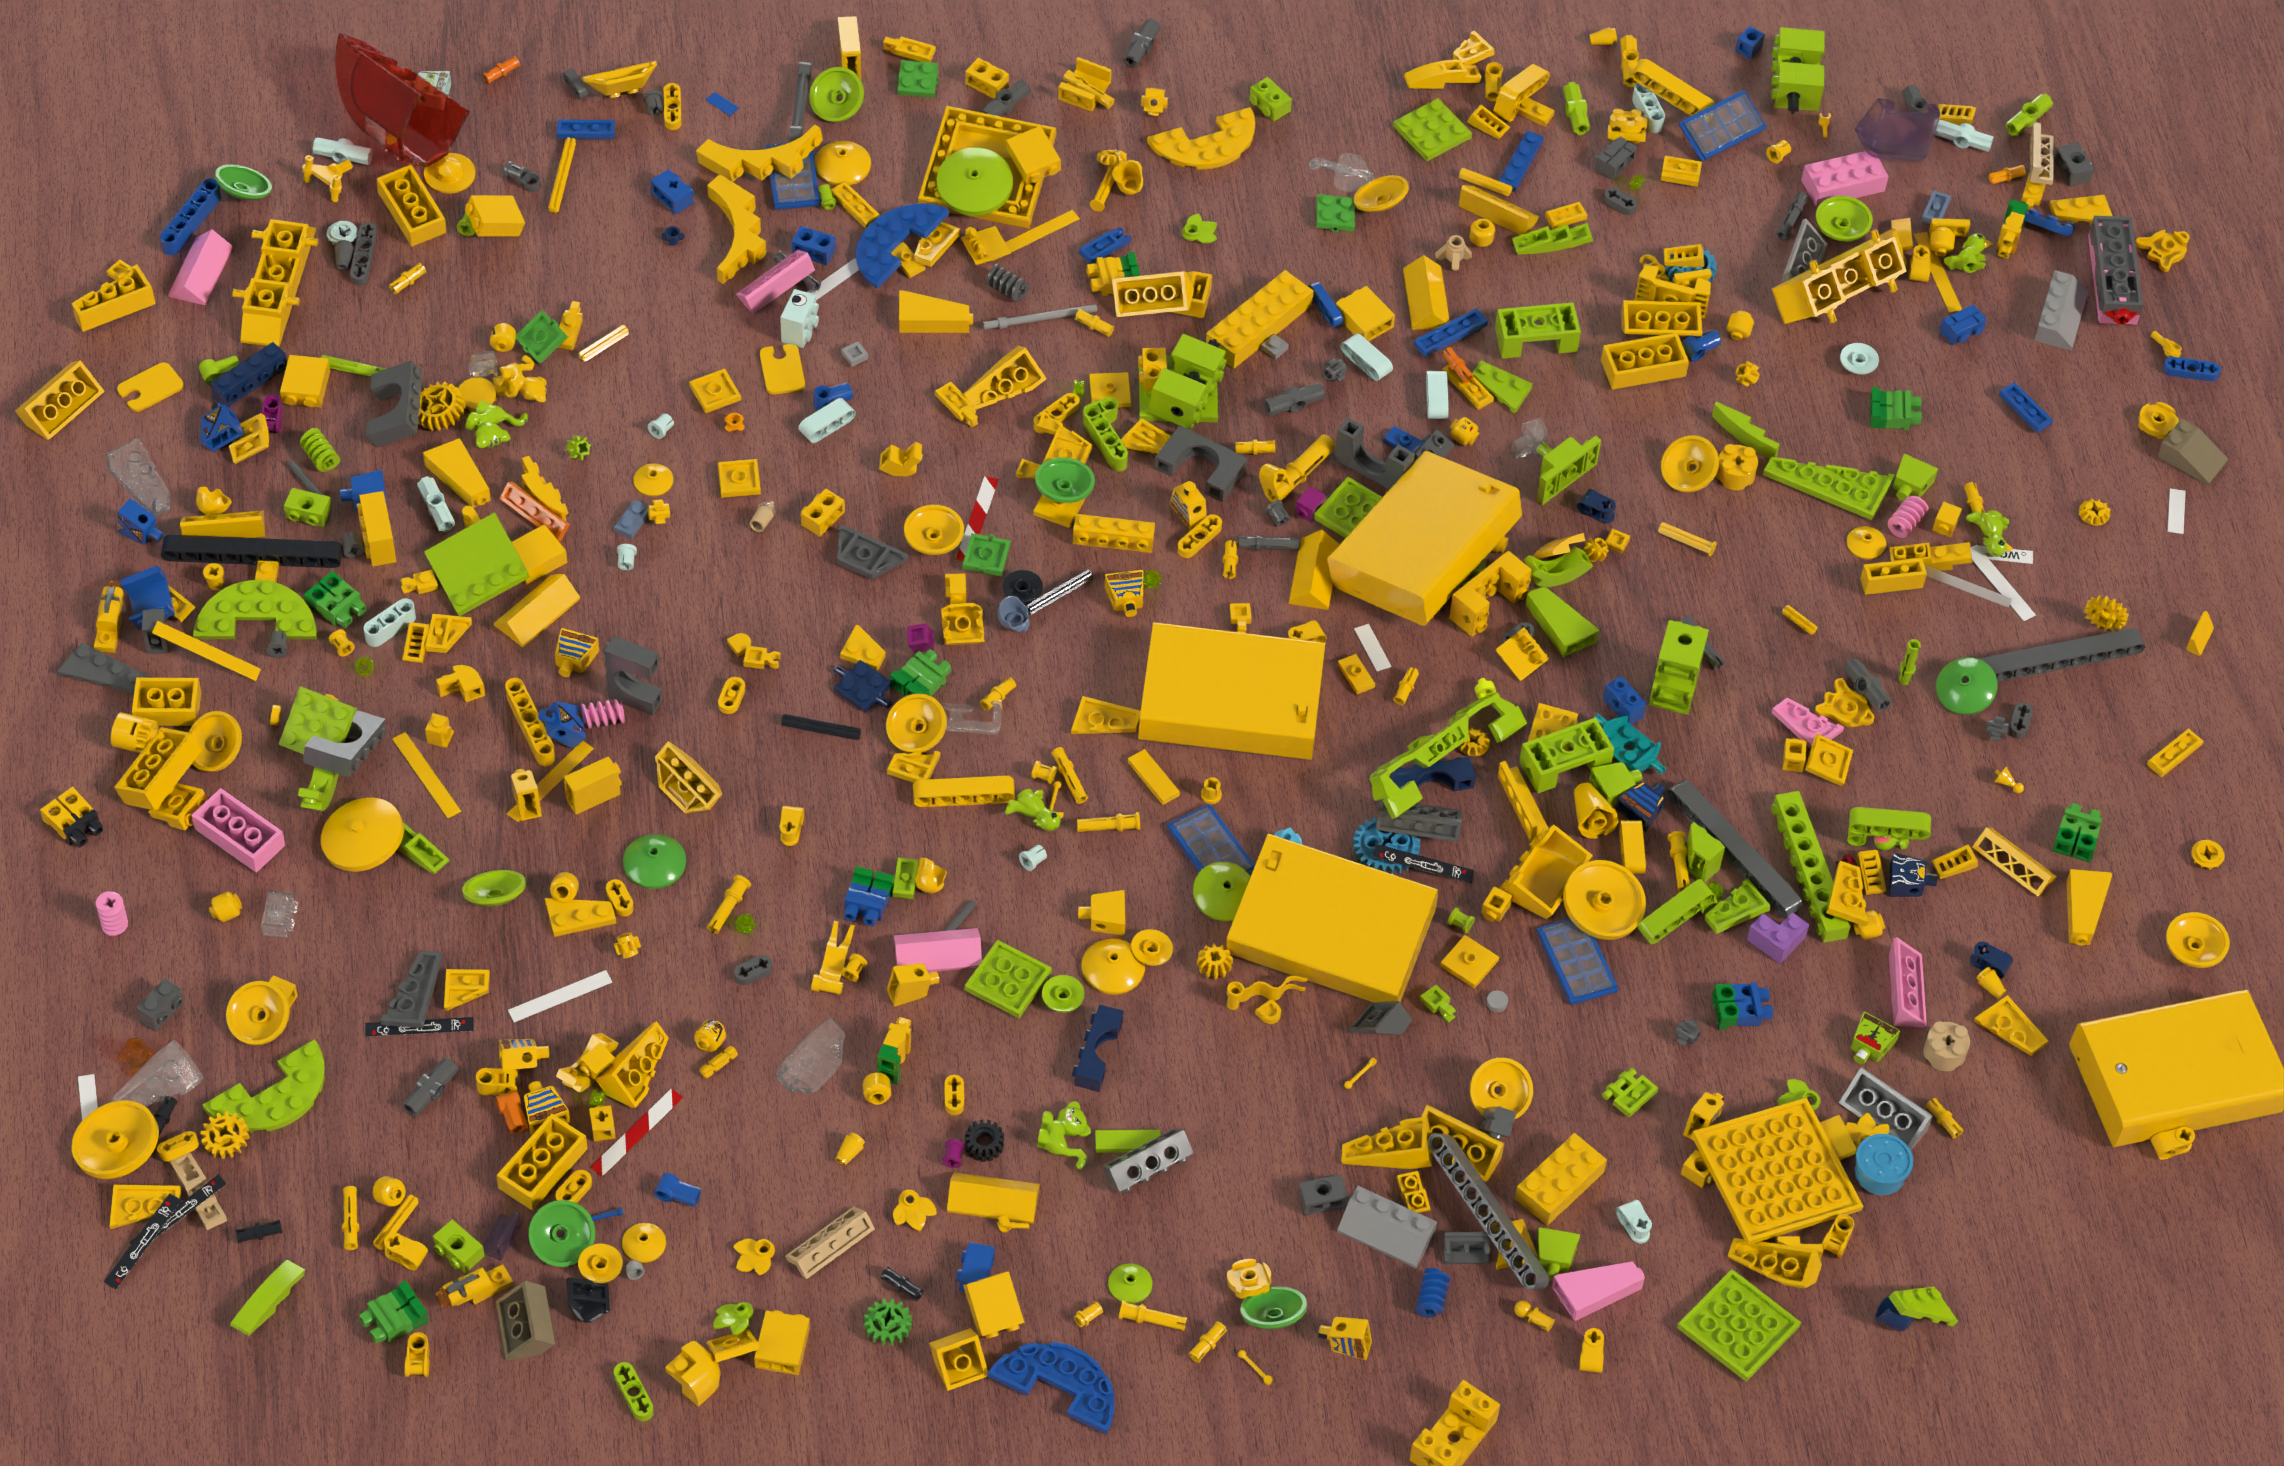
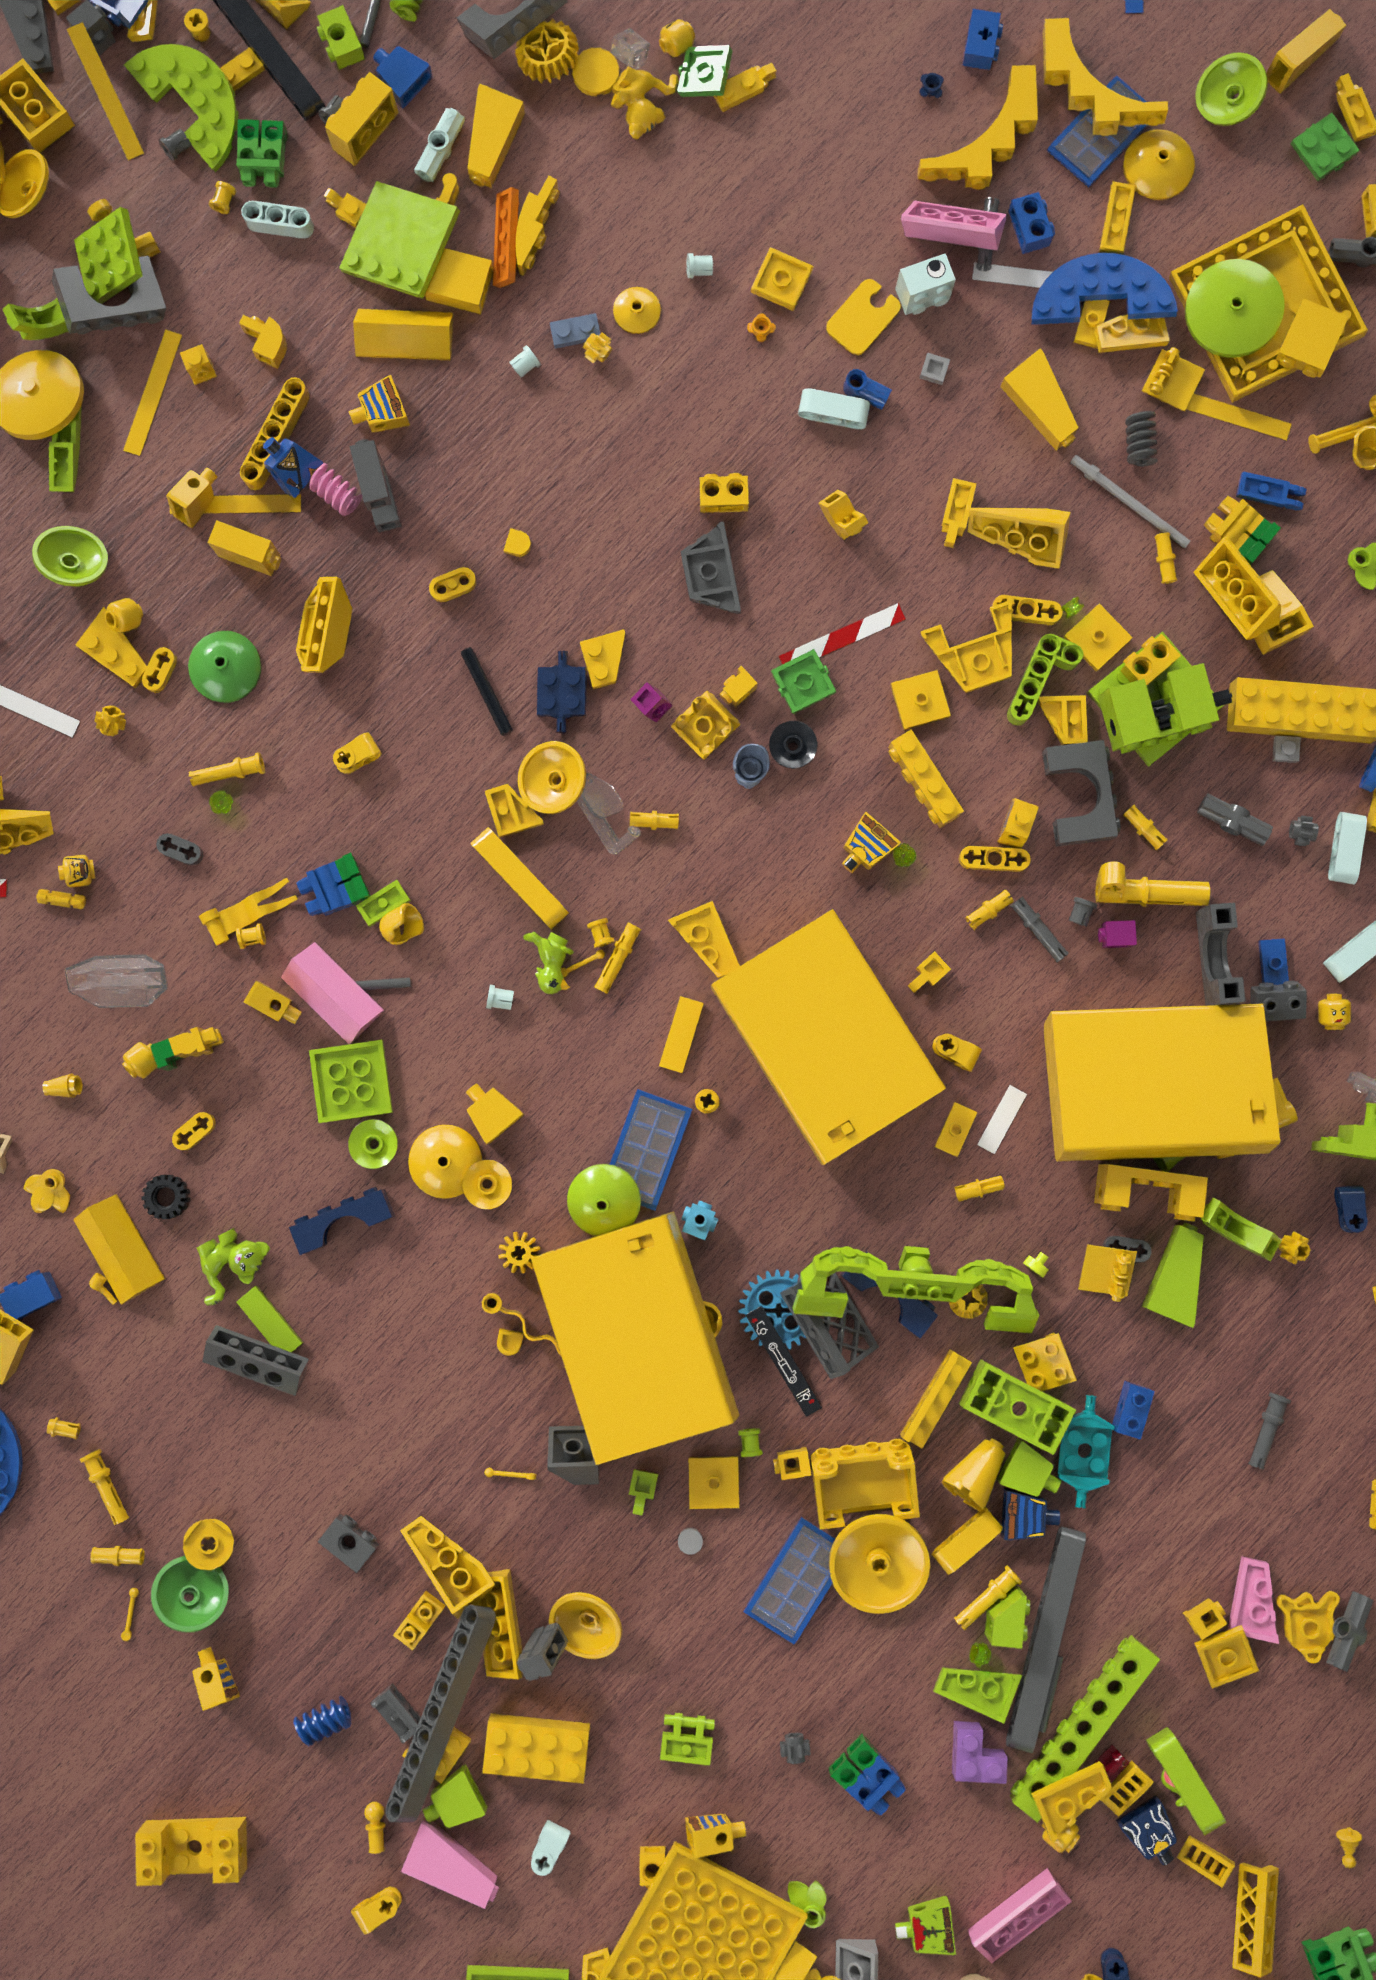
camera: 55 degrees right, 30 degrees up
(364, 661) = (224, 238): clear neon green bush -> none
(415, 628) = (290, 263): yellow slope -> none
(445, 632) = (309, 276): yellow wing -> none
(486, 420) = (556, 121): lime animal -> none
(578, 447) = (608, 214): lime gear -> none
(603, 343) = (751, 132): axle -> none
(739, 478) = (700, 385): yellow plate -> none
(758, 657) = (513, 573): yellow plate -> none
(764, 514) = (675, 443): tan piece -> none
(804, 75) = (1232, 39): dark grey piece -> none
(828, 201) = (1100, 186): lime pin -> none
(920, 675) = (612, 736): bright green hips -> none
(935, 522) = (787, 597): yellow dish -> none
(953, 1153) = (129, 1180): magenta bush -> none
(1059, 591) = (819, 781): axle -> none
(1064, 480) = (953, 680): bright green dish -> none
(1118, 822) = (601, 1044): yellow pin -> none
(1133, 1291) = (140, 1435): lime dish -> none
(1311, 577) = (1030, 1003): yellow slope -> none
(1346, 507) = (1146, 976): lime plate -> none
(1387, 1227) = (361, 1626): light grey slope -> none
(1558, 546) = (1263, 1211): yellow slope -> none
(1617, 541) = (1326, 1256): yellow tile -> none
(1677, 910) = (922, 1643): lime beam -> none
(1678, 667) = (1204, 1448): lime piece -> none

